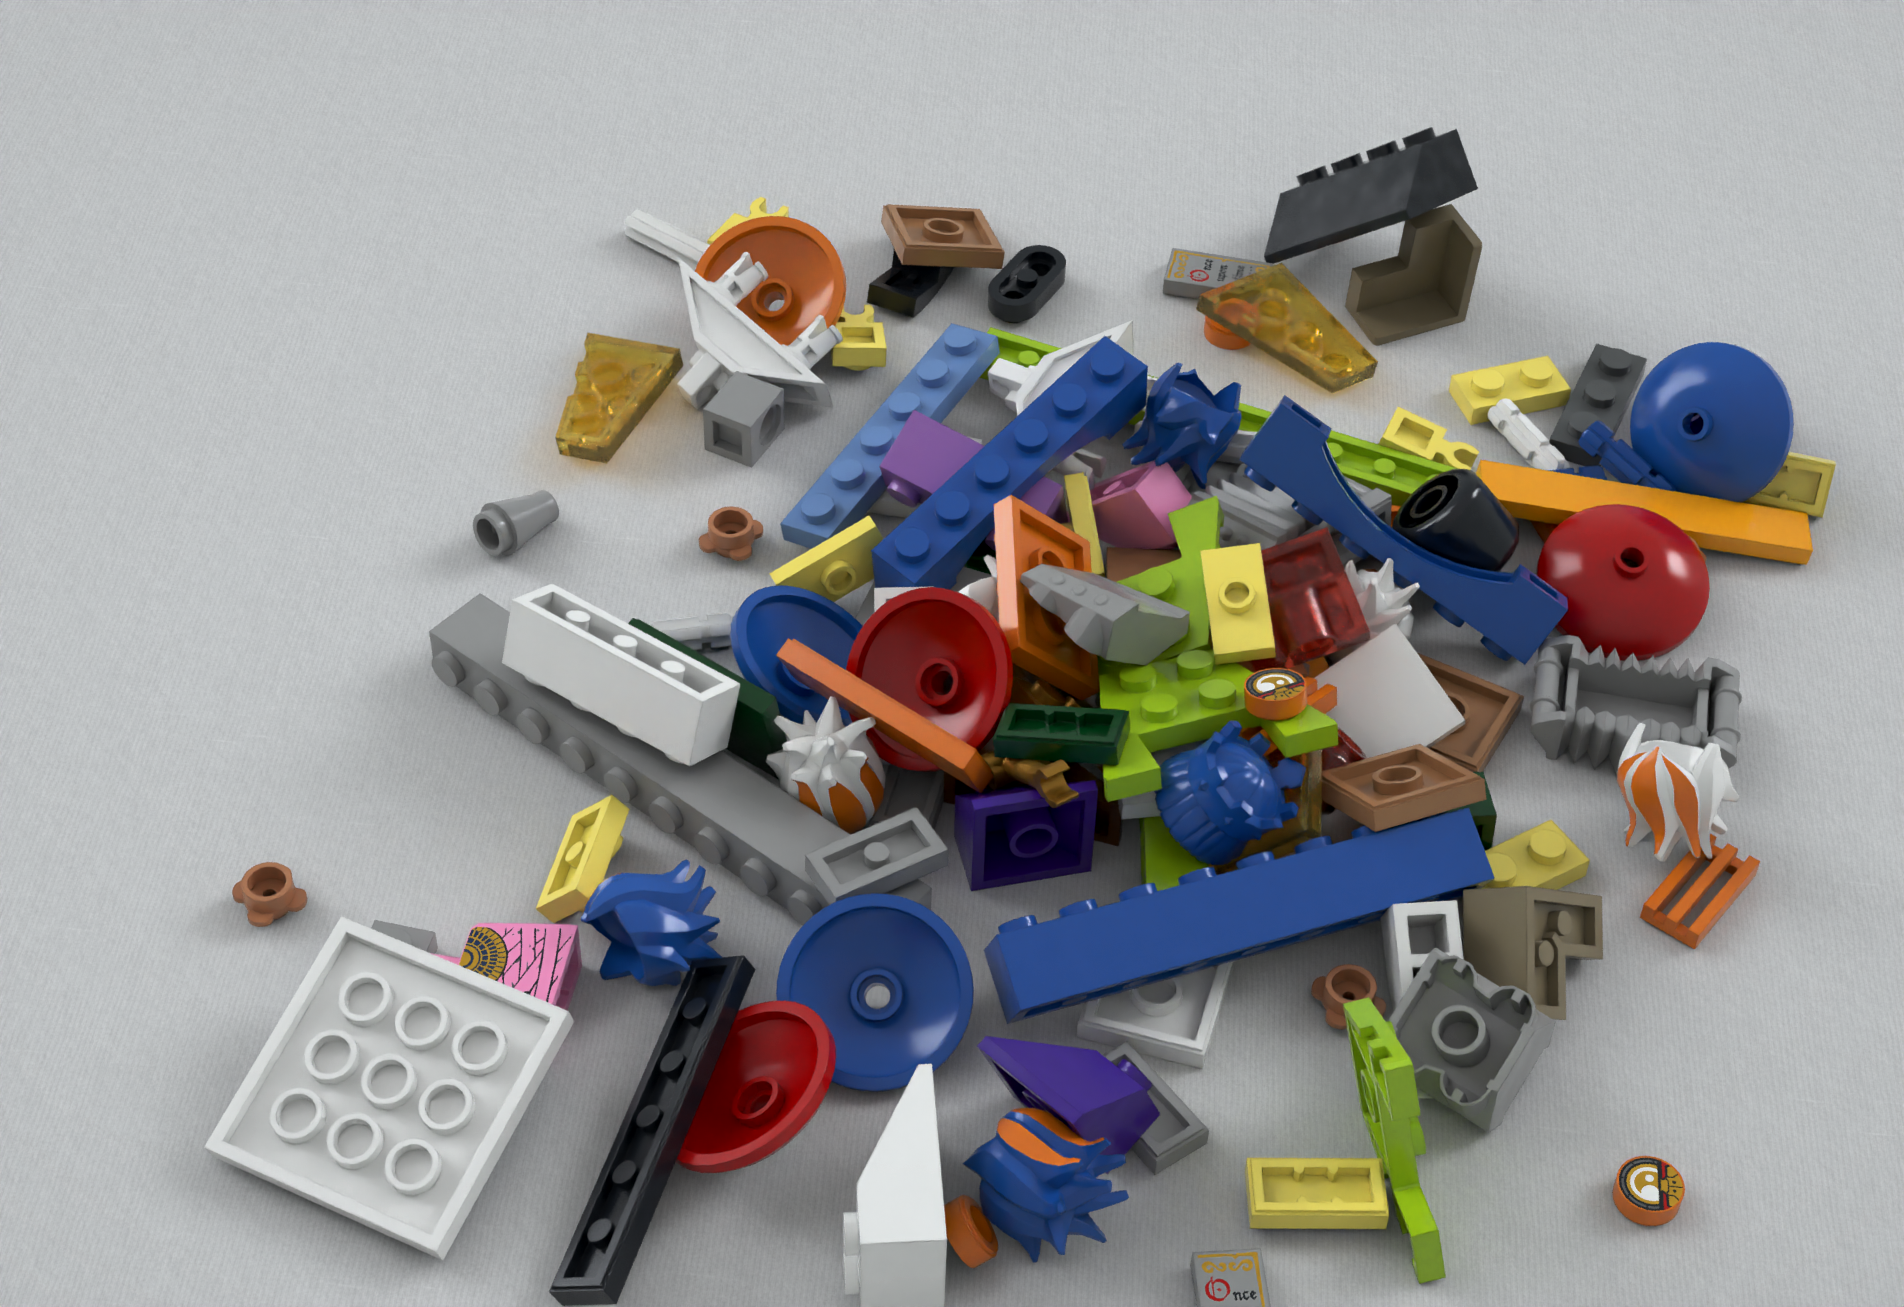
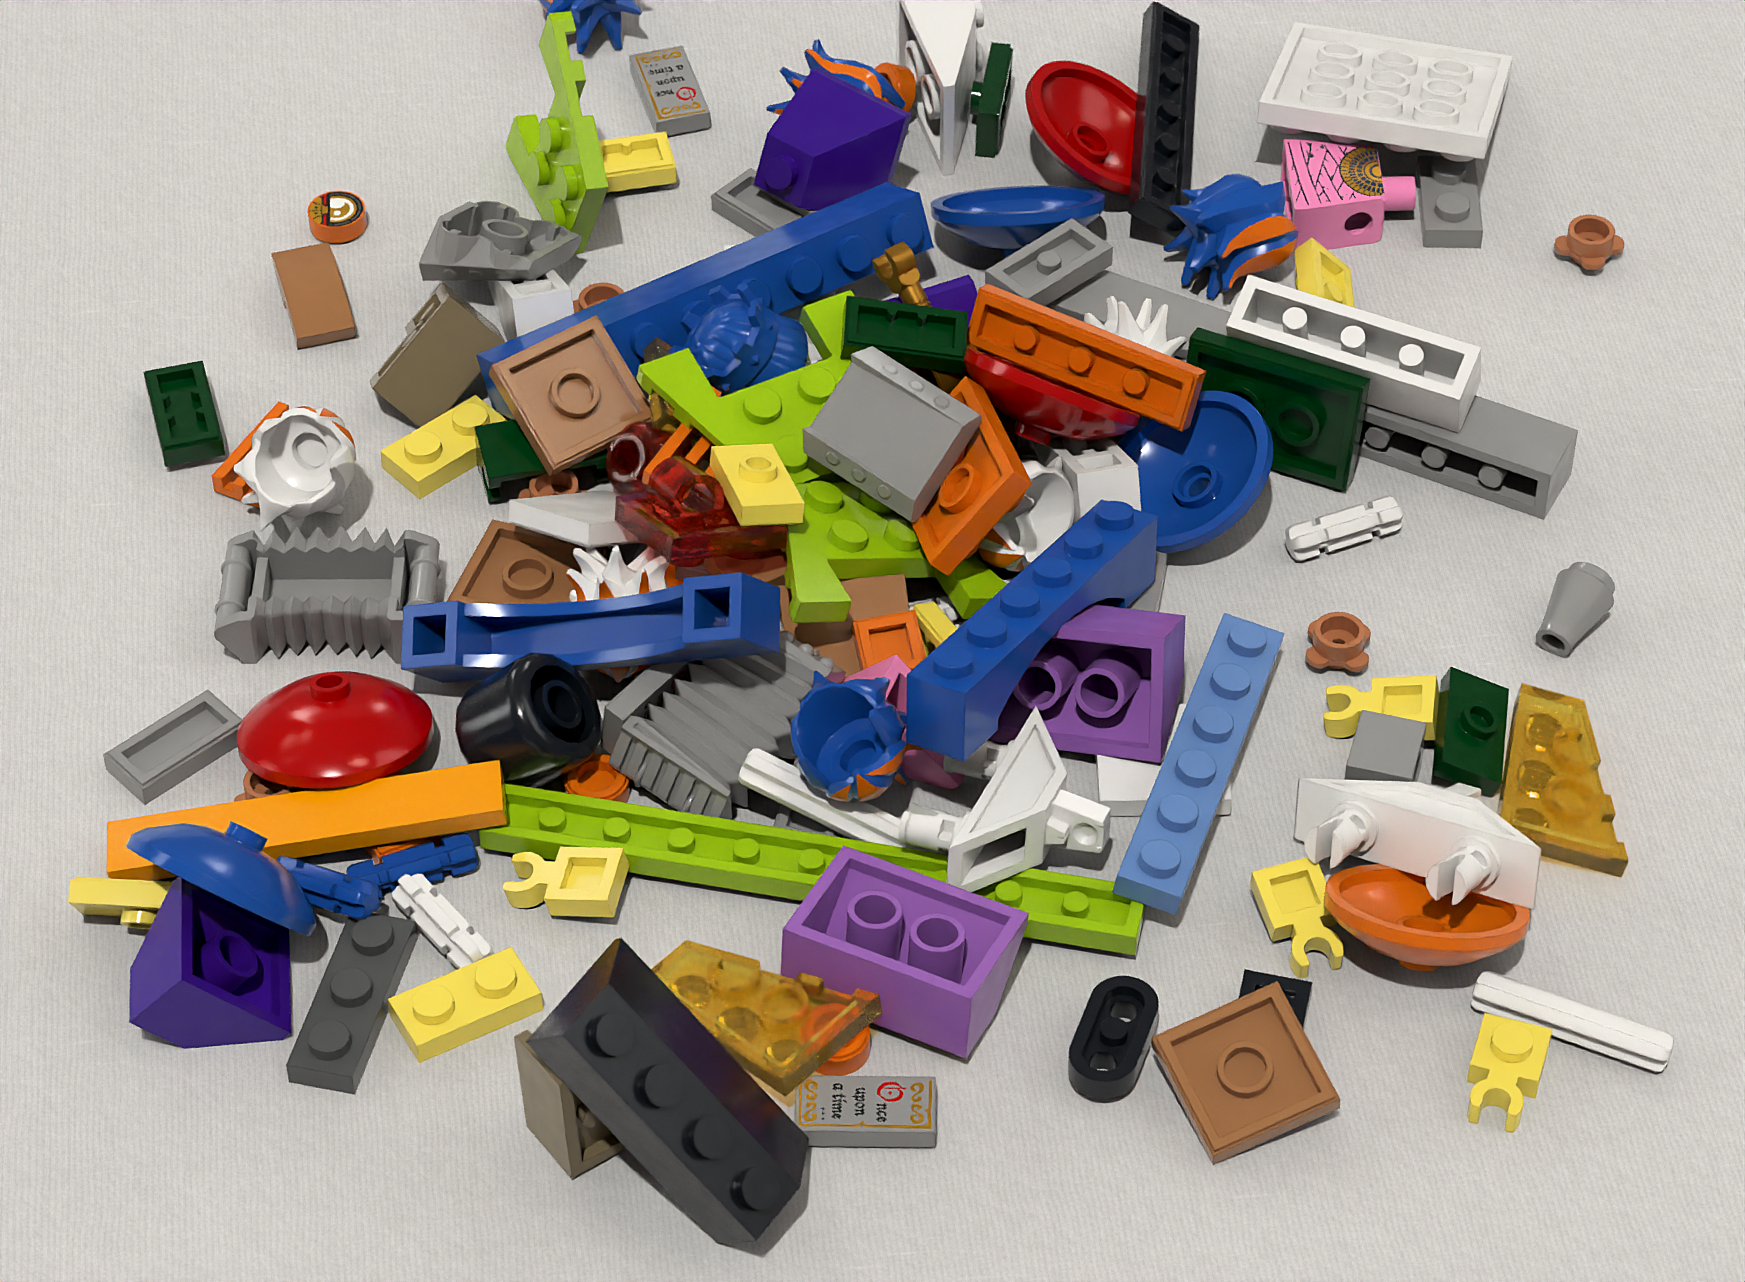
camera: 170 degrees right, 0 degrees up
(656, 443) = (1470, 731): none -> dark green plate
(715, 464) = (1395, 696): none -> light yellow plate
(826, 1225) = (991, 99): none -> dark green plate
(835, 564) = (1203, 575): light yellow plate -> none
(1130, 550) = (888, 636): none -> orange tile
(1181, 319) = (913, 940): none -> medium lavender slope
(1275, 694) = (703, 387): tile -> none
(1672, 1072) = (313, 295): none -> medium nougat slope
(1761, 621) = (174, 747): none -> light grey tile
(1798, 942) = (184, 413): none -> dark green plate

